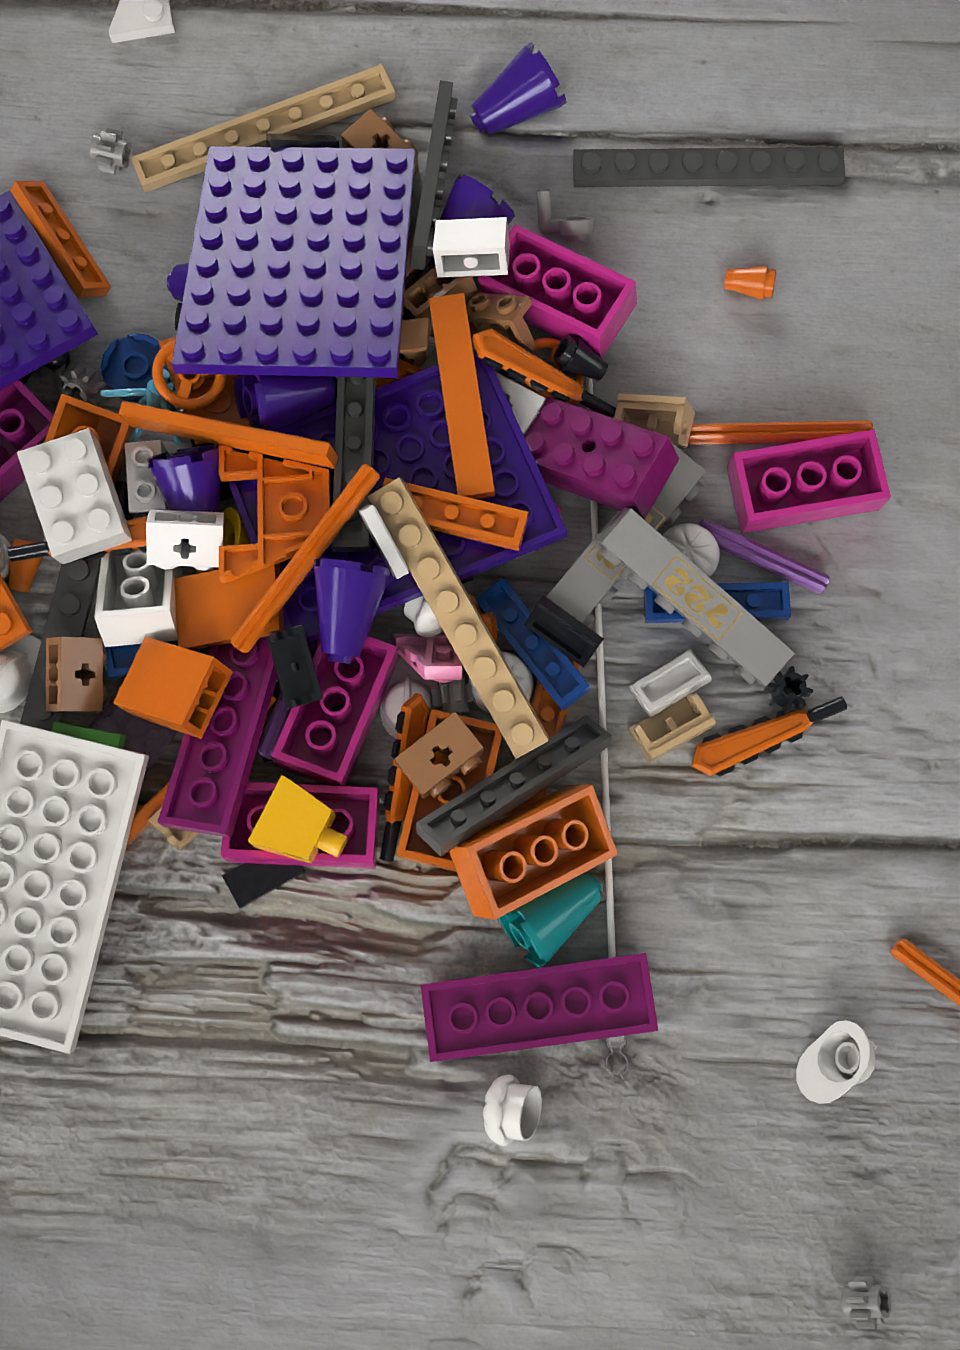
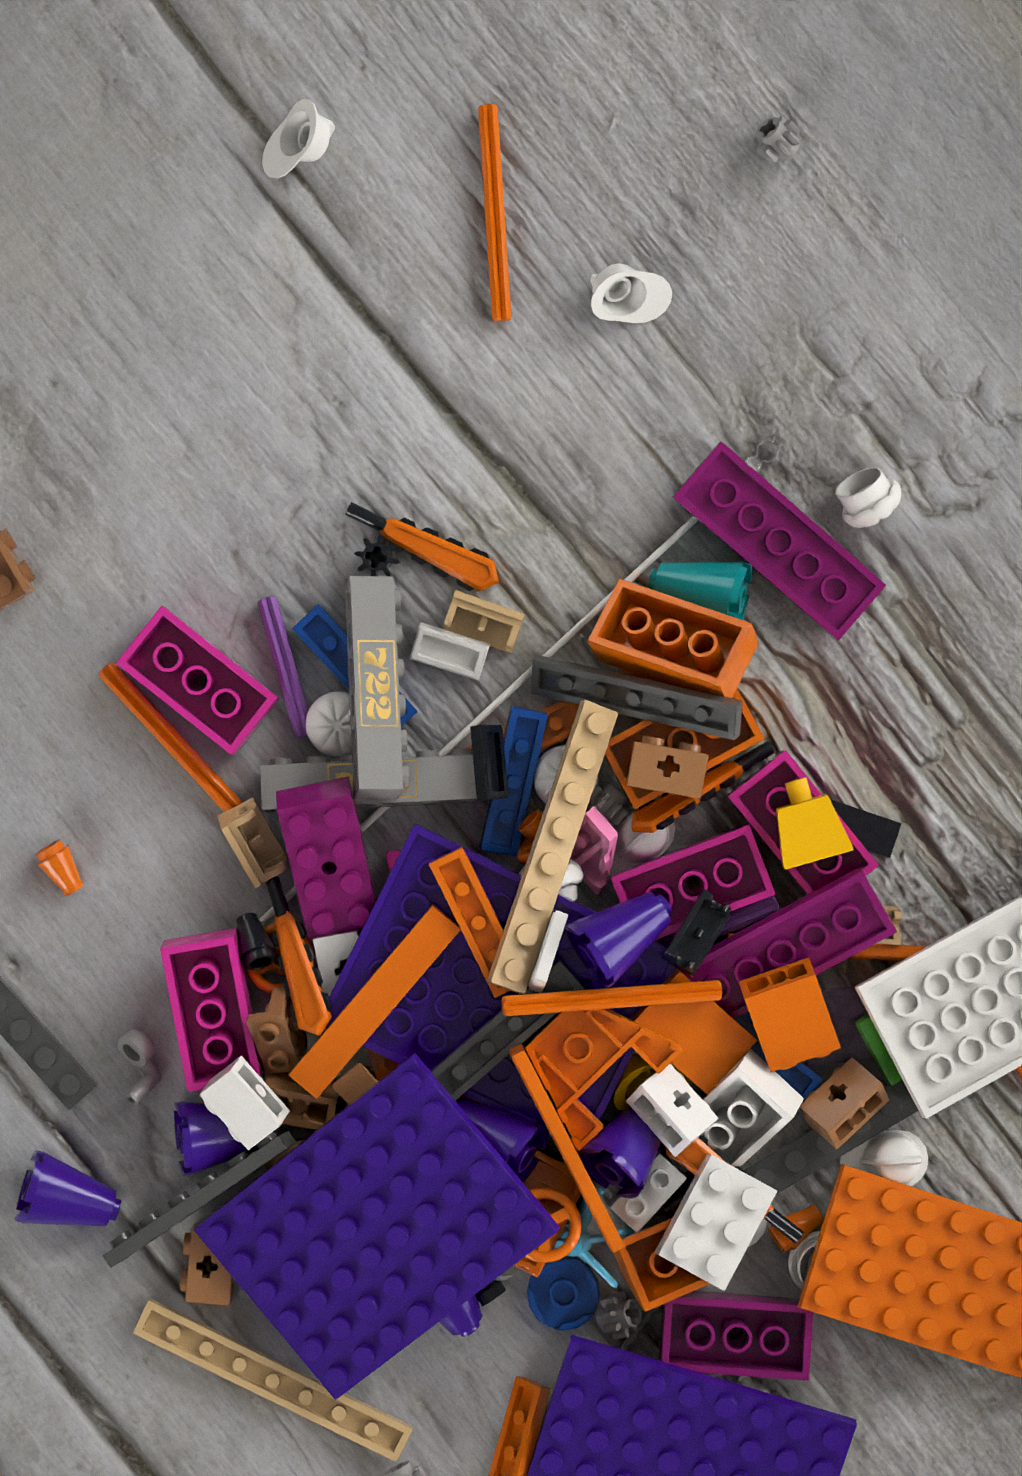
camera: 130 degrees left, 10 degrees up
(278, 141) = (261, 1332): black tile -> none

